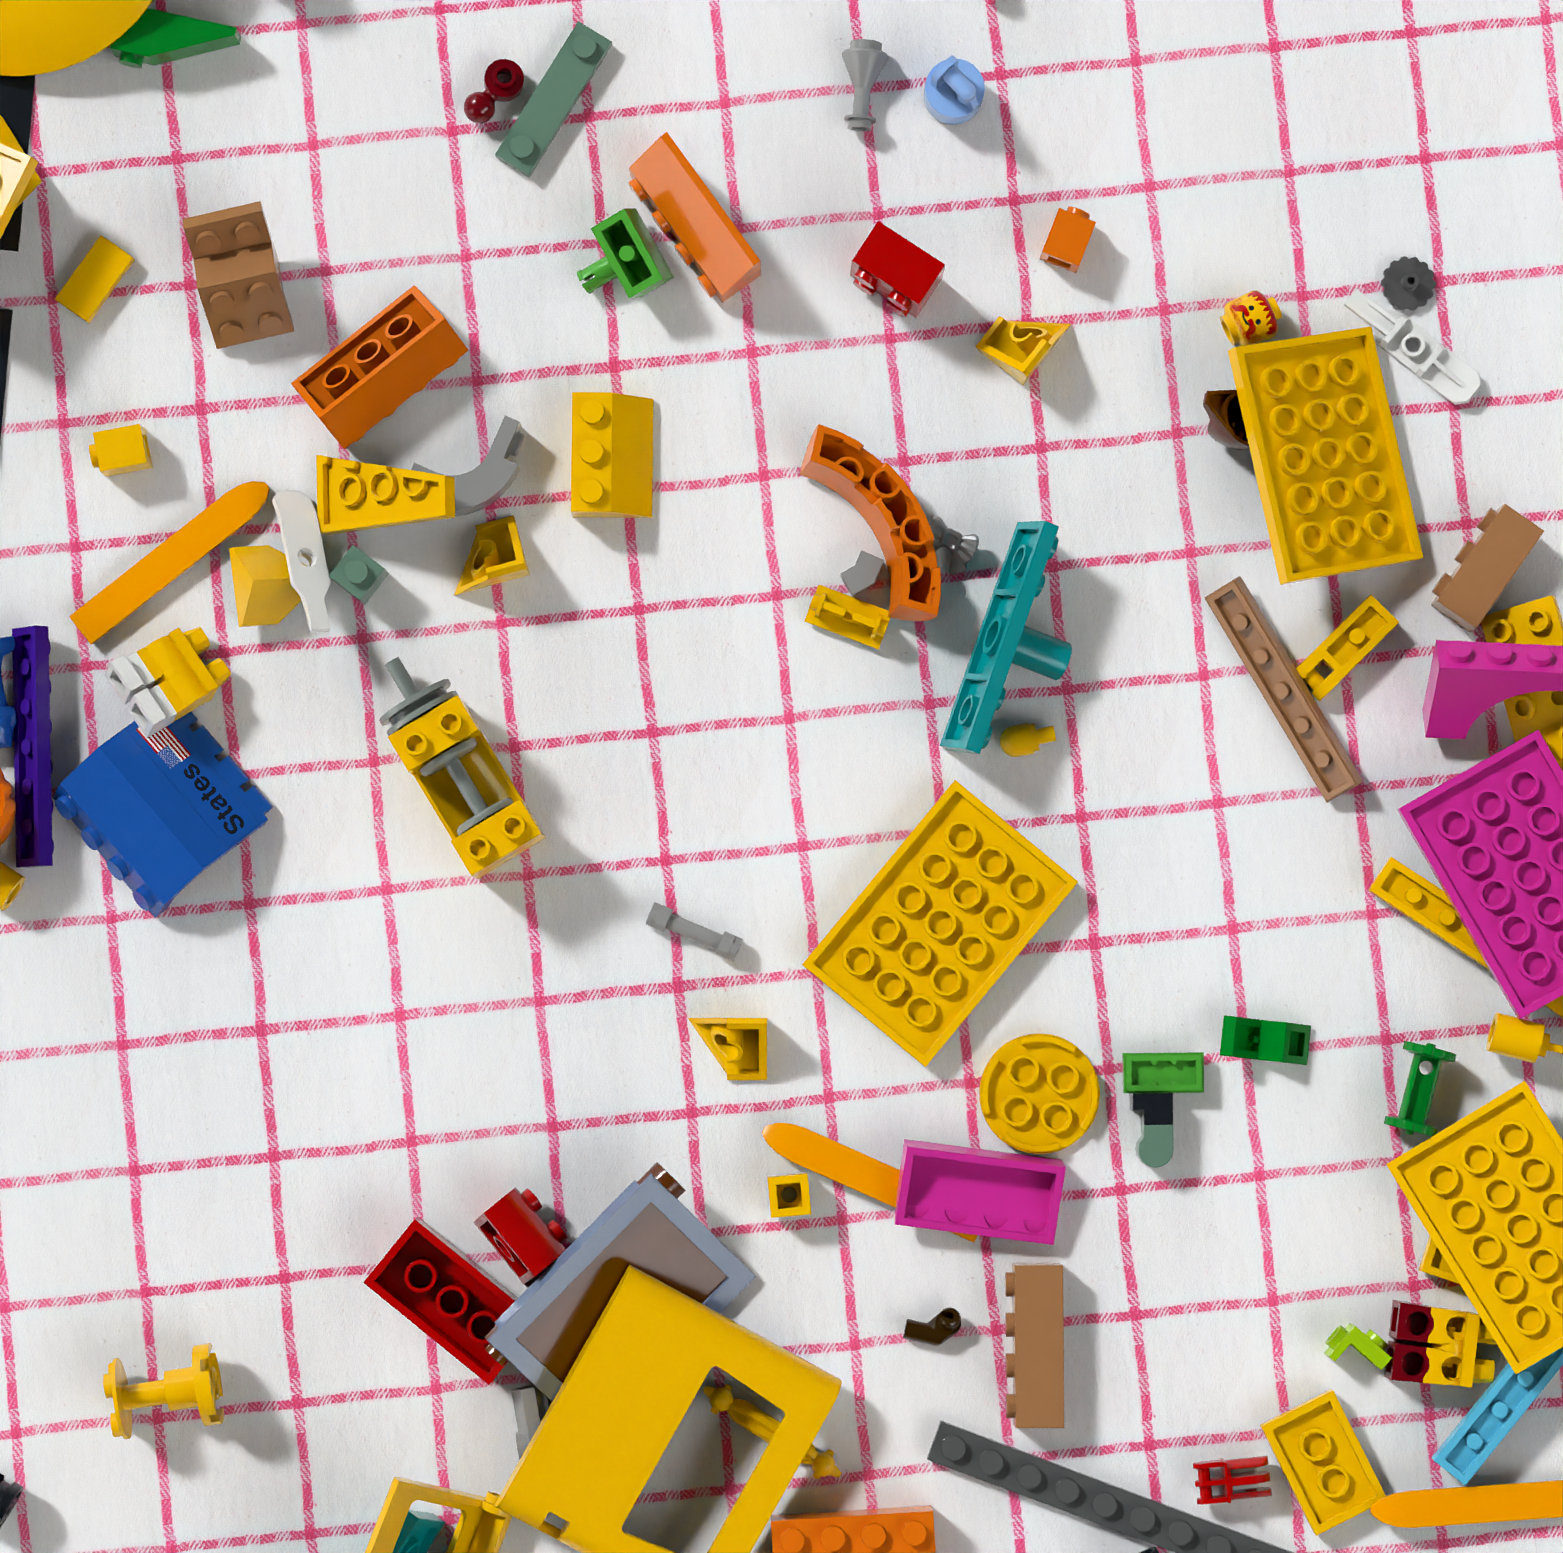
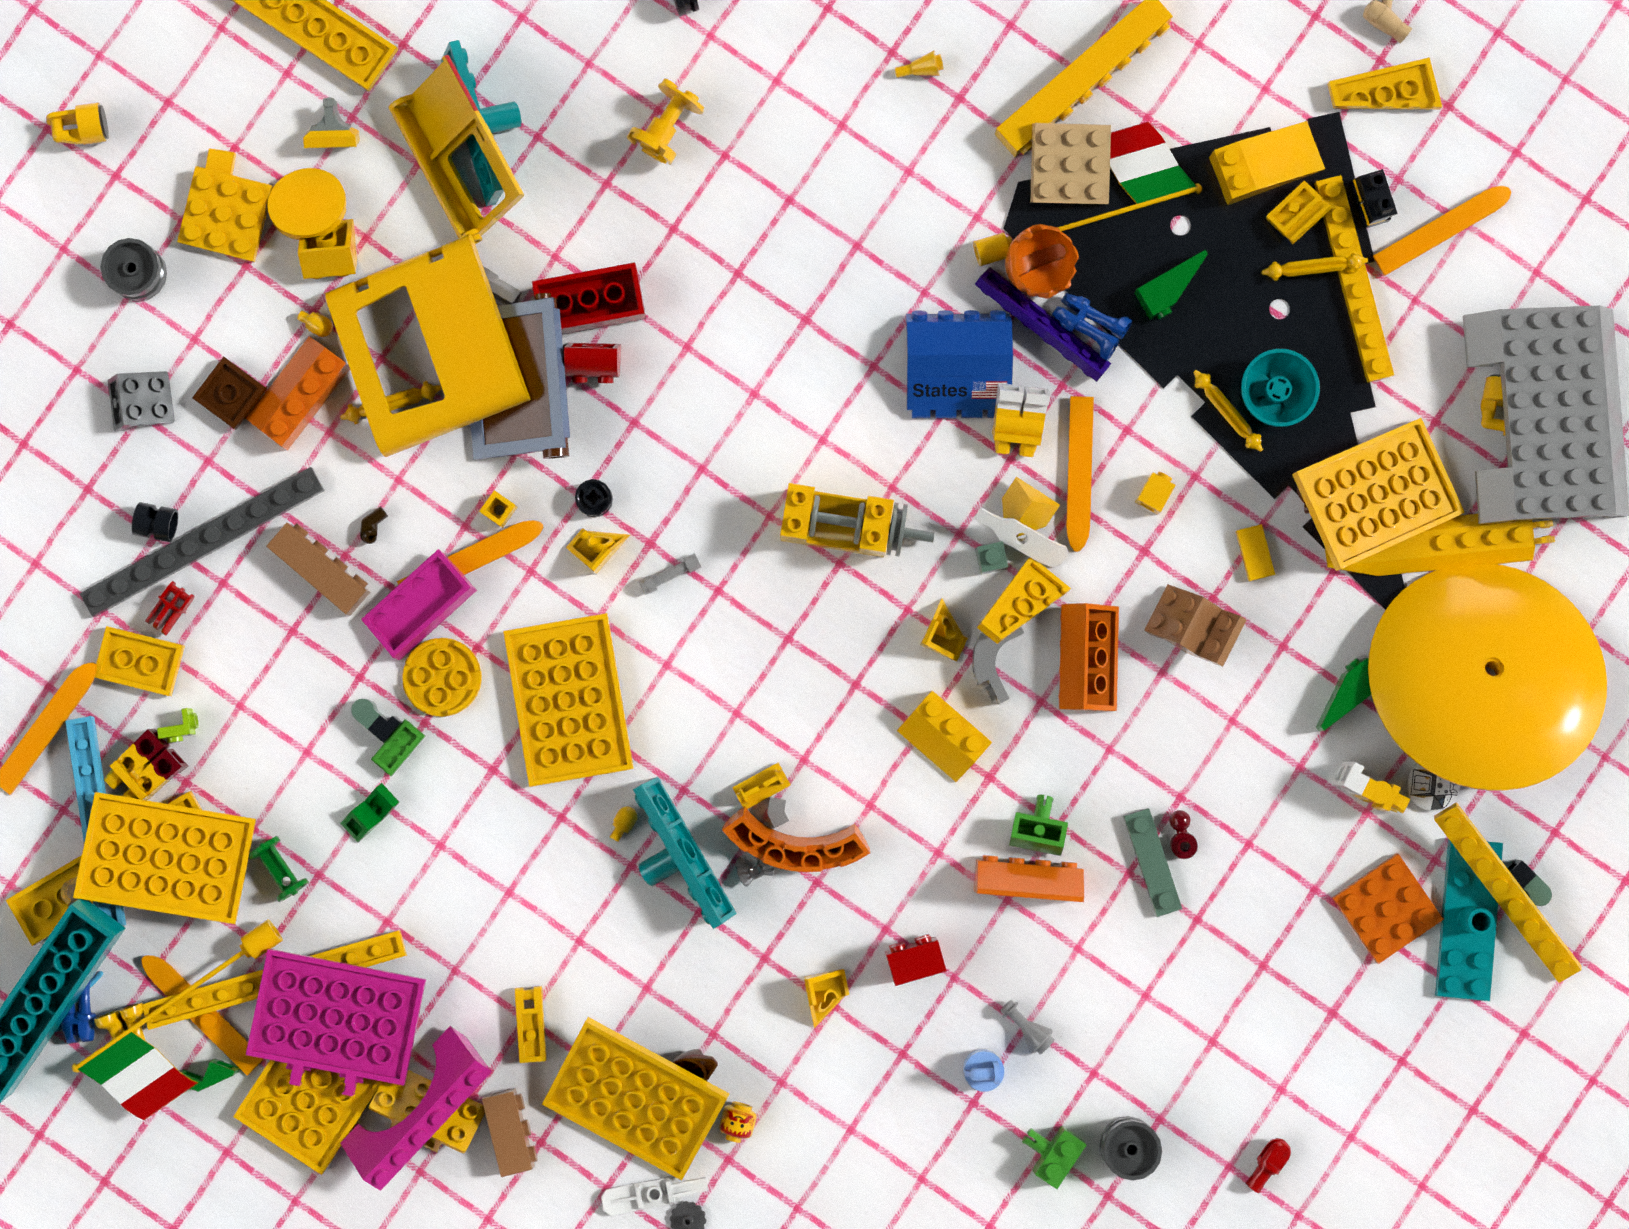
camera: 130 degrees right, 0 degrees up
(681, 1095) = (593, 498): none -> black wheel
(1068, 238) = (858, 1063): orange brick -> none
(1283, 689) = (536, 974): medium nougat tile -> none

